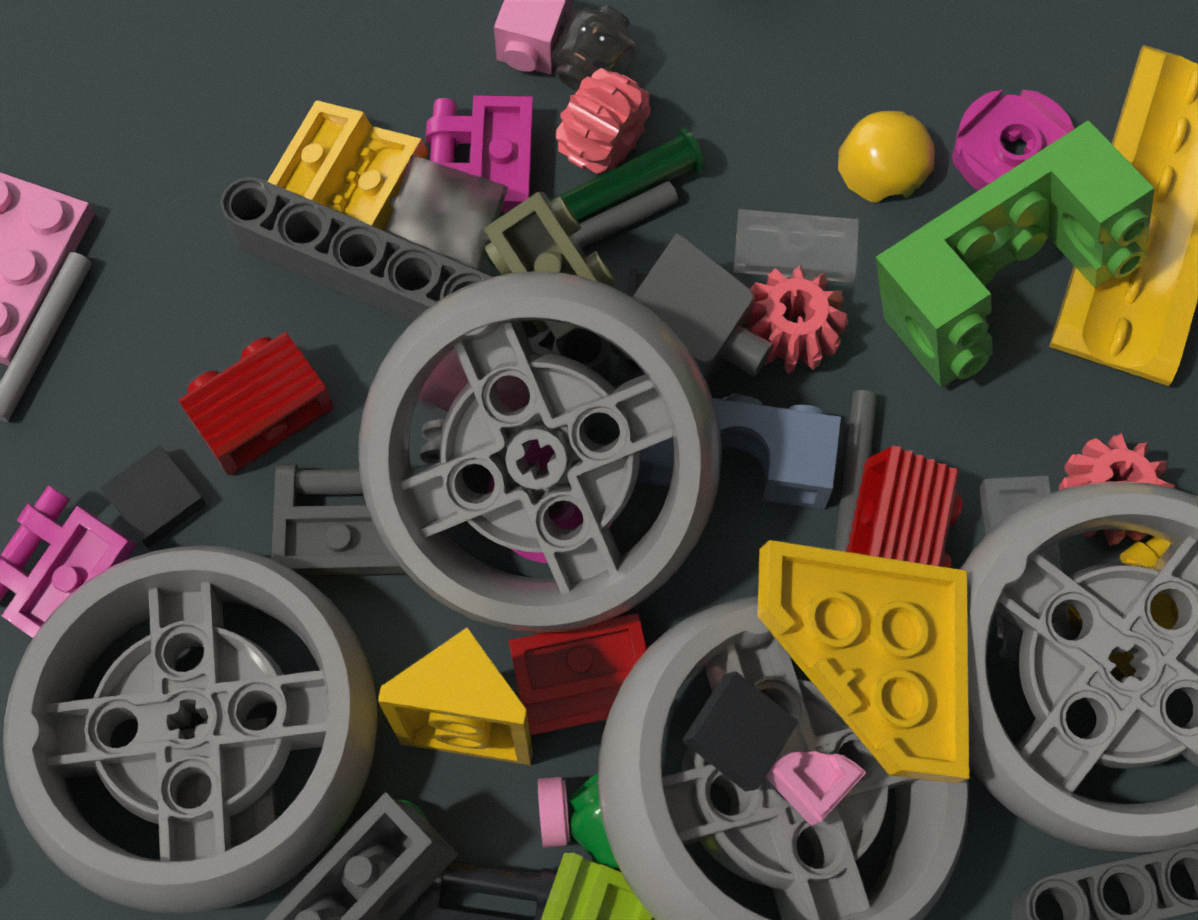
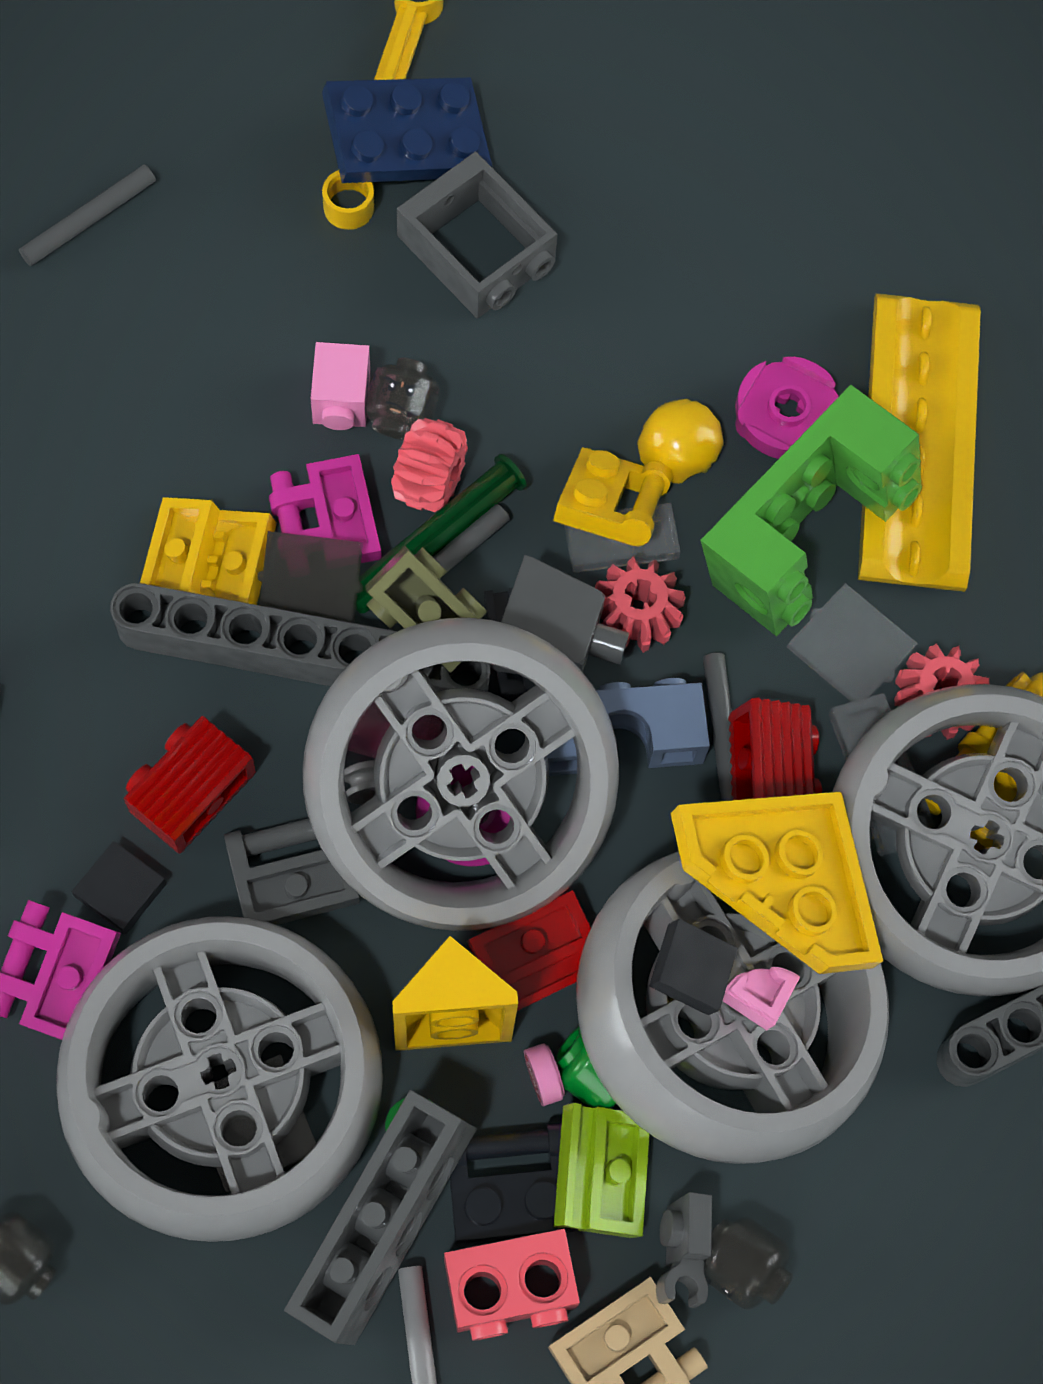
camera: 20 degrees left, 0 degrees up
(781, 184) = (596, 490): none -> yellow plate
(1025, 416) = (852, 645): none -> clear piece

